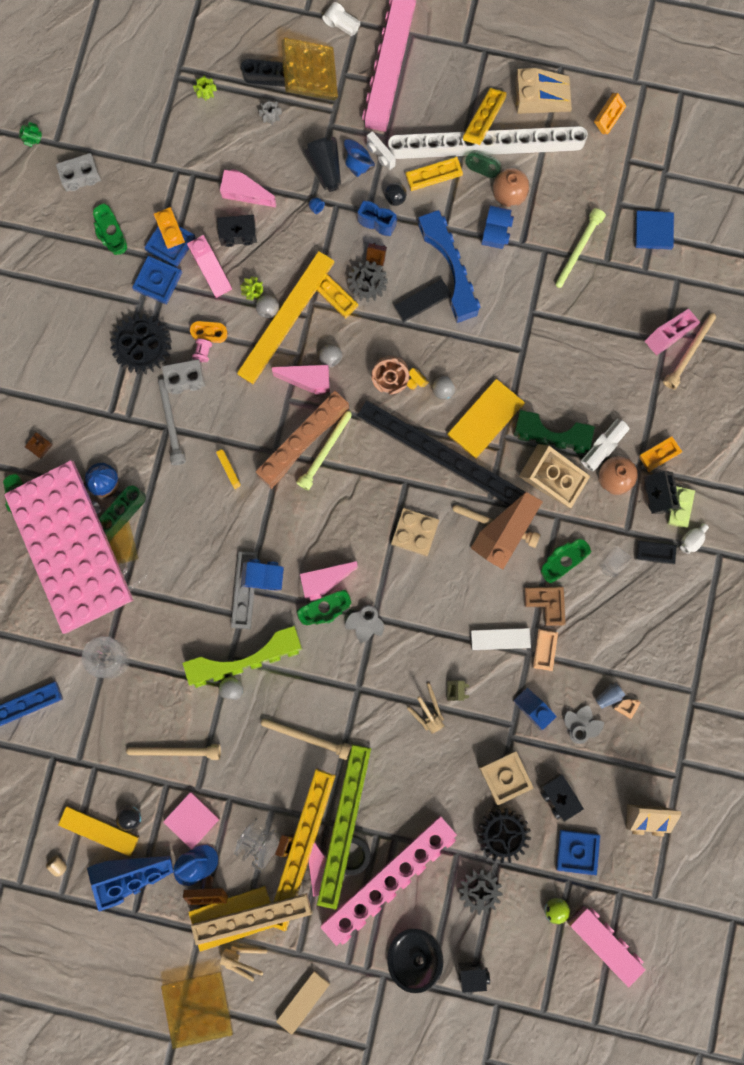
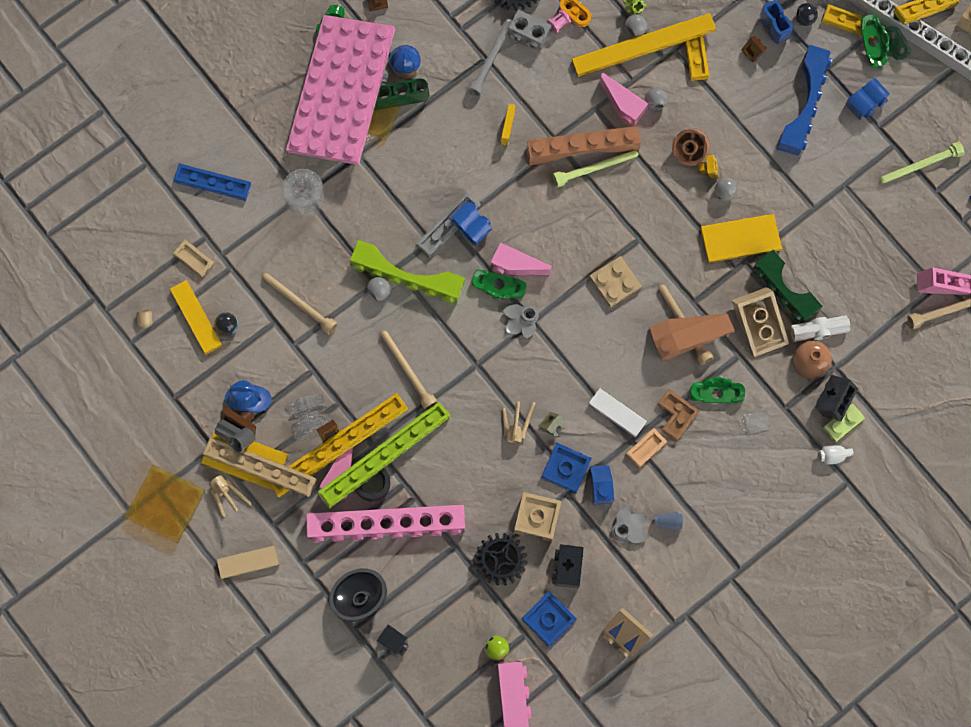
camera: 30 degrees right, 5 degrees down
(57, 783) = (193, 258): none -> tan tile
(119, 878) = (186, 364): blue wedge -> none
(191, 820) = (271, 363): bright pink tile -> none
(213, 910) = (236, 437): none -> dark grey piece
(373, 277) = (739, 64): dark grey gear -> none
(422, 300) = (763, 111): black tile -> none
(439, 453) = (682, 235): black plate -> none
(455, 165) = (870, 27): none -> green piece
(470, 890) = (443, 593): dark grey gear -> none
(495, 717) = (566, 468): none -> blue tile
(511, 187) = (904, 77): nougat cylinder -> none
(627, 707) = (676, 541): light nougat tile -> none
(656, 552) = (795, 442): black tile -> none
(660, 454) = (859, 369): light orange plate -> none

